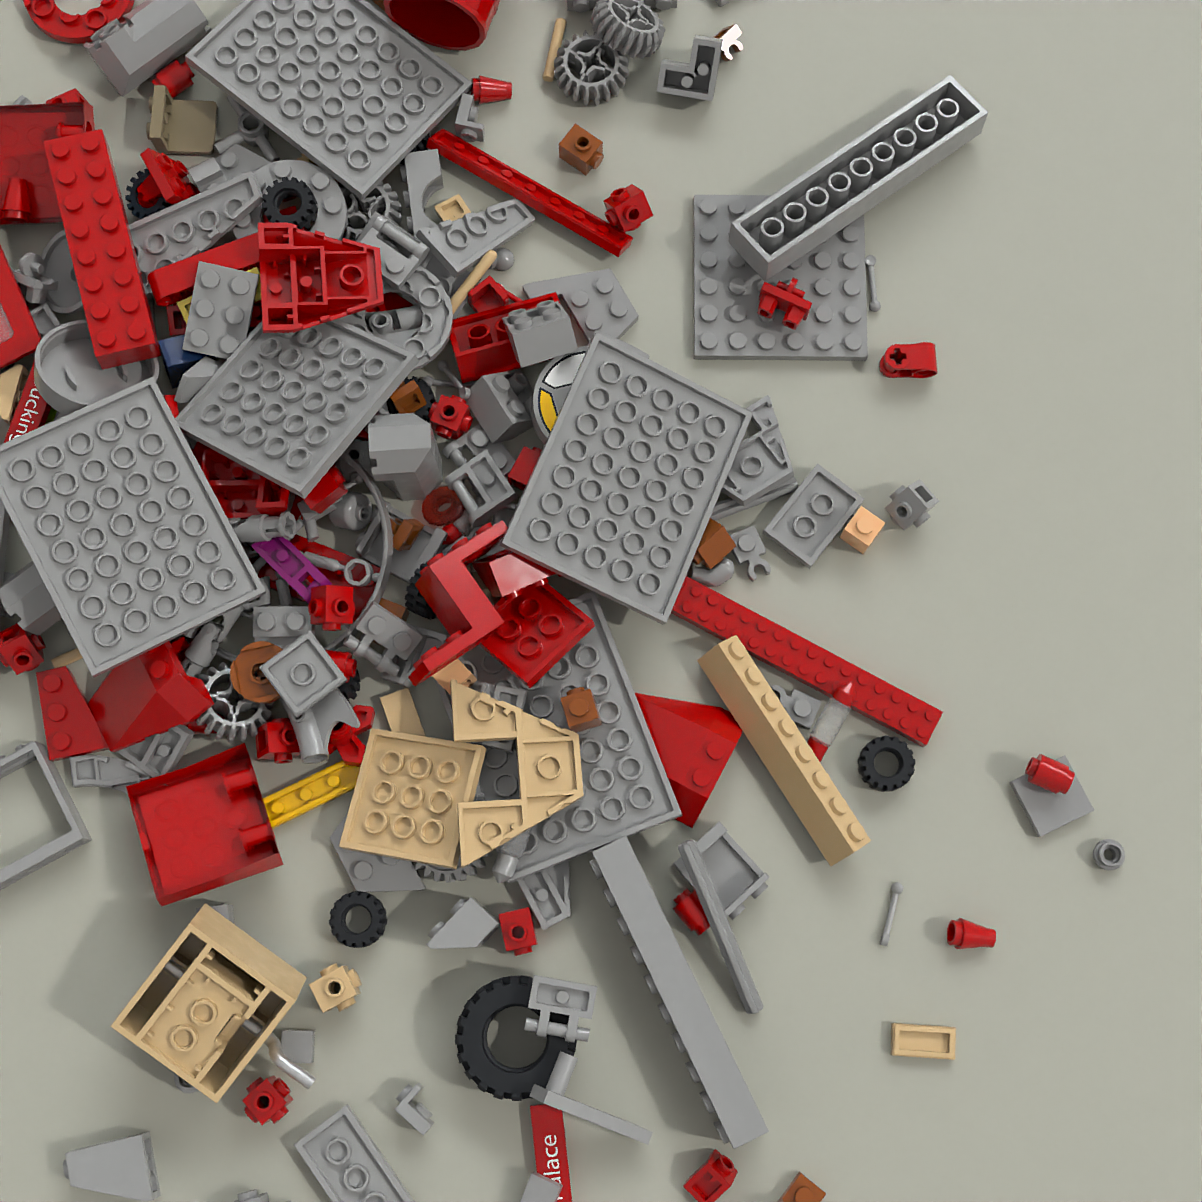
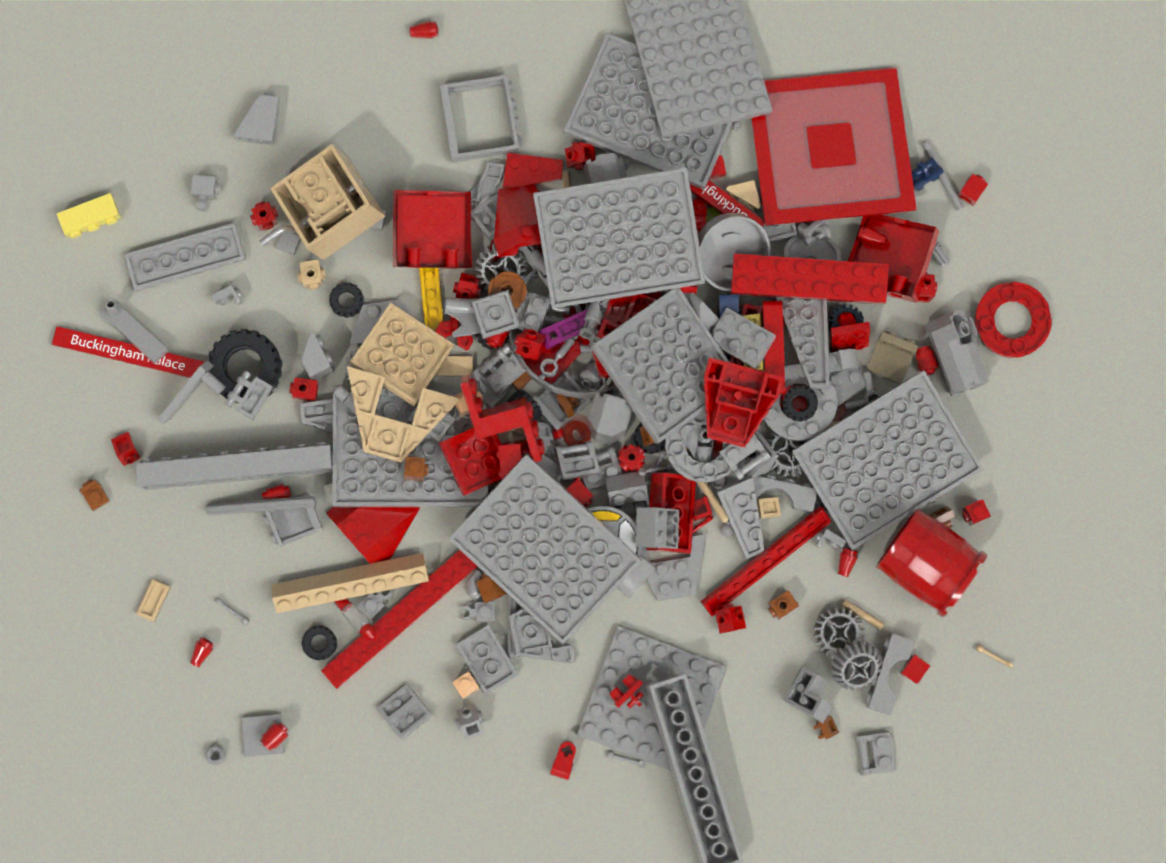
camera: 105 degrees right, 5 degrees up
(933, 605) = (404, 712): none -> light grey slope

